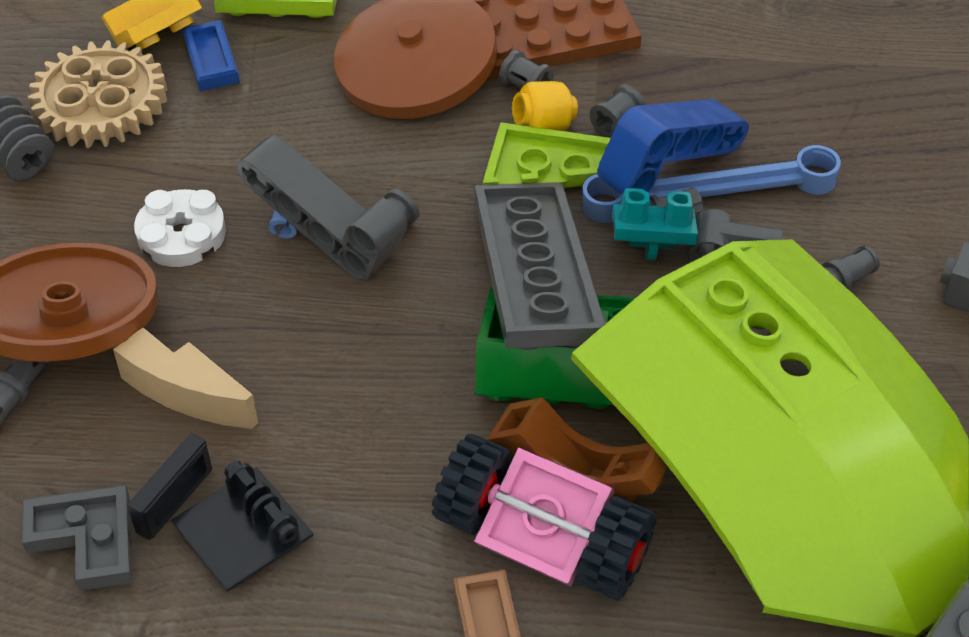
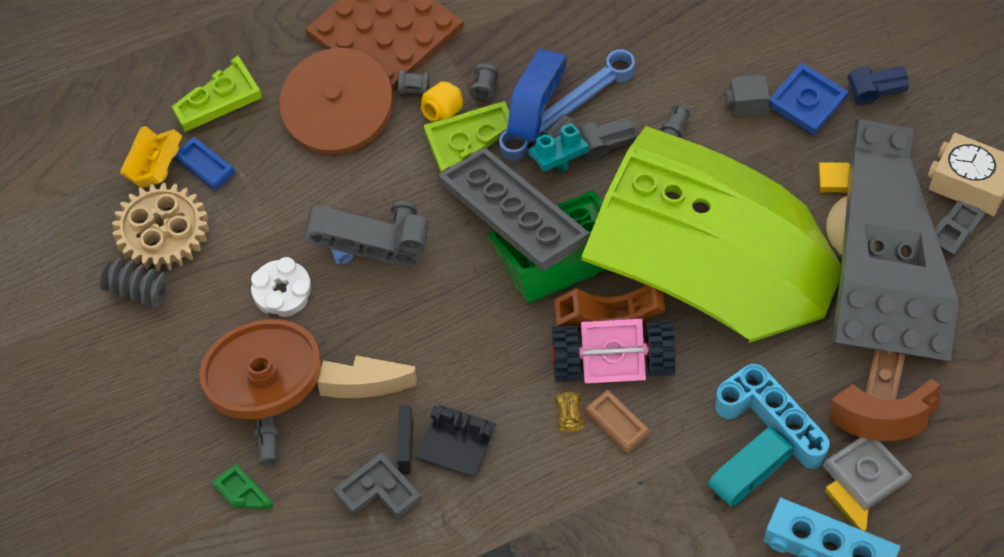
camera: 30 degrees left, 10 degrees up
(425, 571) = (571, 420): none -> clear yellow bush

